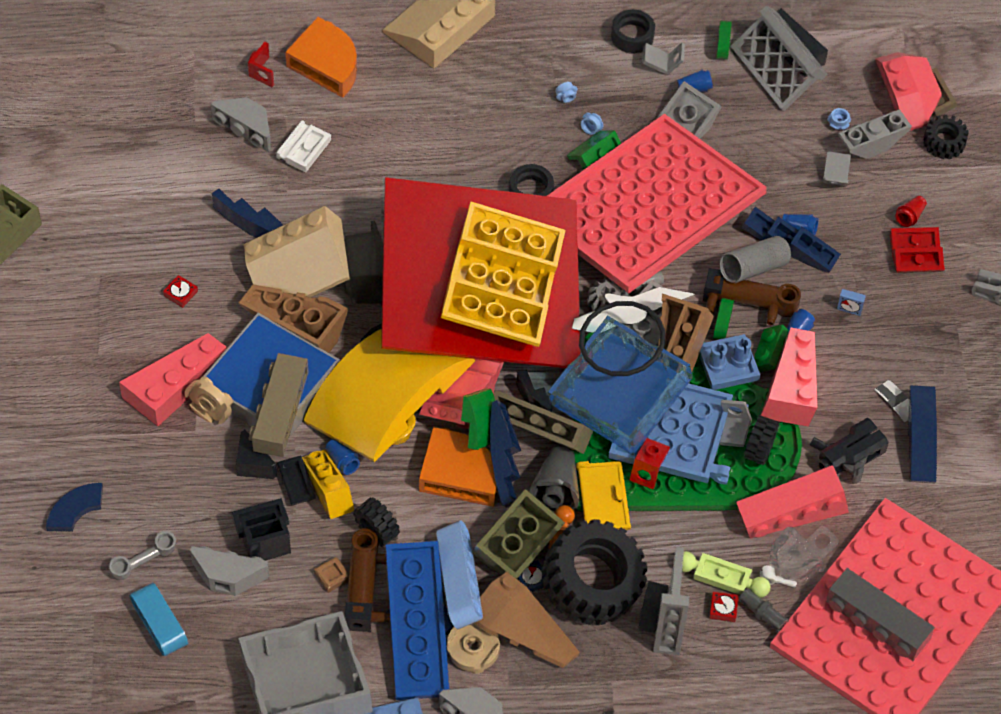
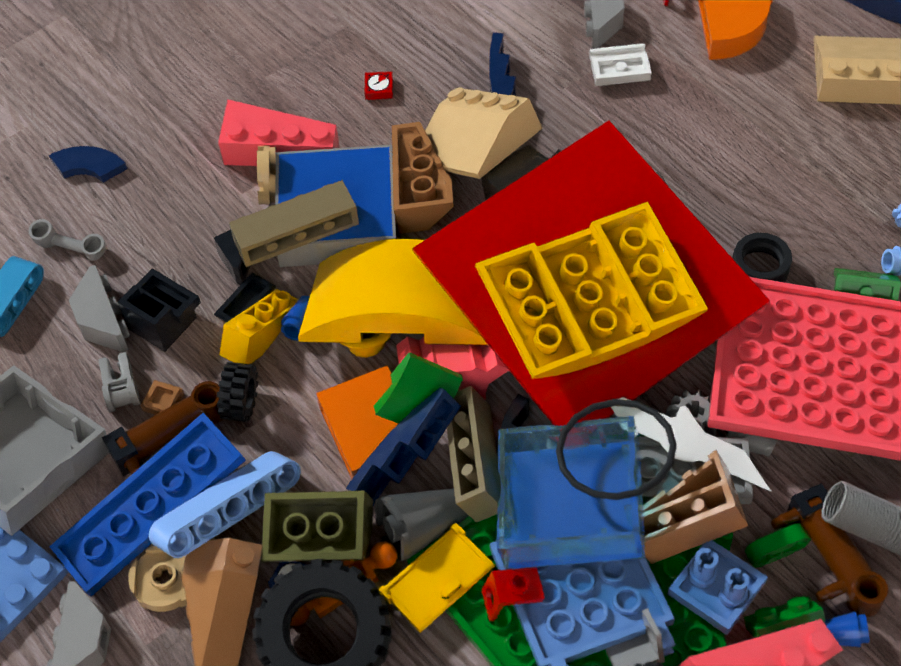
camera: 60 degrees right, 0 degrees up
(302, 590) = (121, 390): none -> light grey piece

